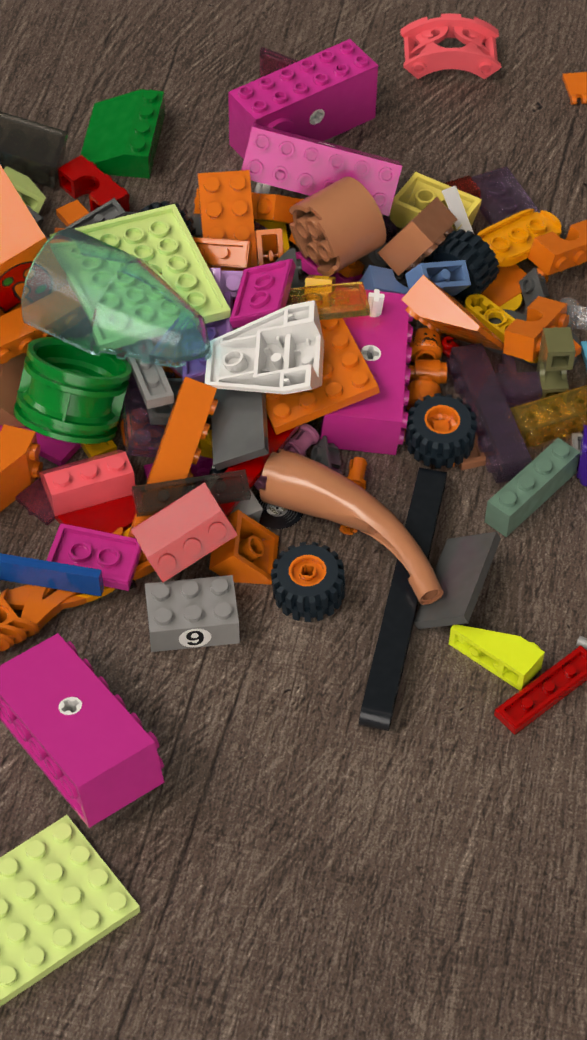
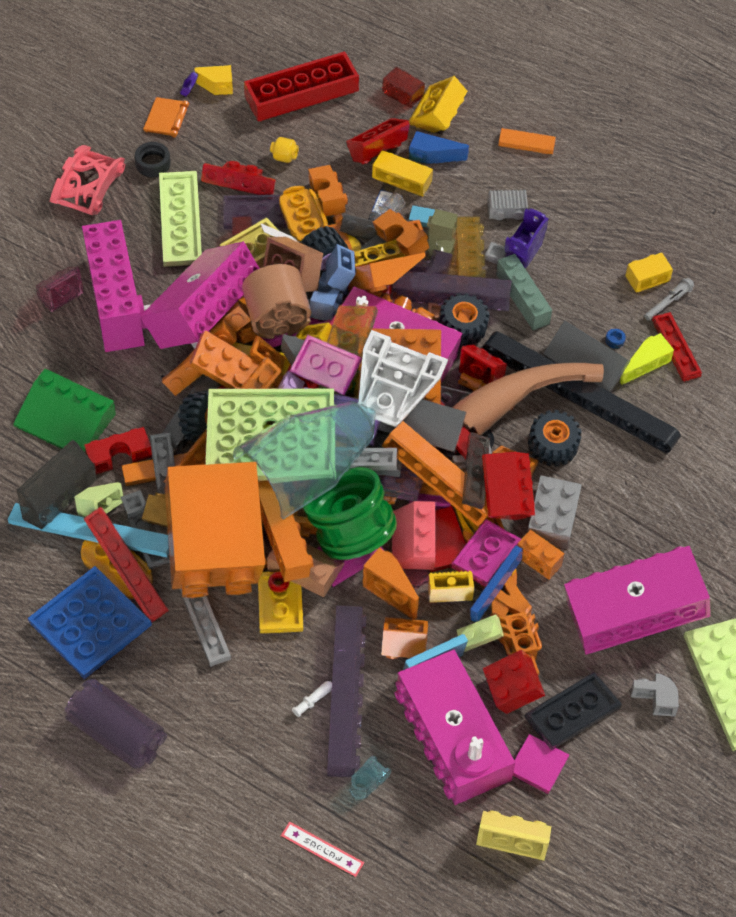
camera: 70 degrees left, 5 degrees up
(27, 530) = (450, 587): none -> yellow brick
(118, 615) = (540, 554): none -> orange brick
(386, 470) = (480, 364): none -> red slope
(451, 139) = (180, 218): none -> yellowish green plate
(519, 80) = (152, 148): none -> black tyre
(520, 614) = (615, 338): none -> blue tile
(543, 170) = (238, 177): none -> red bracket

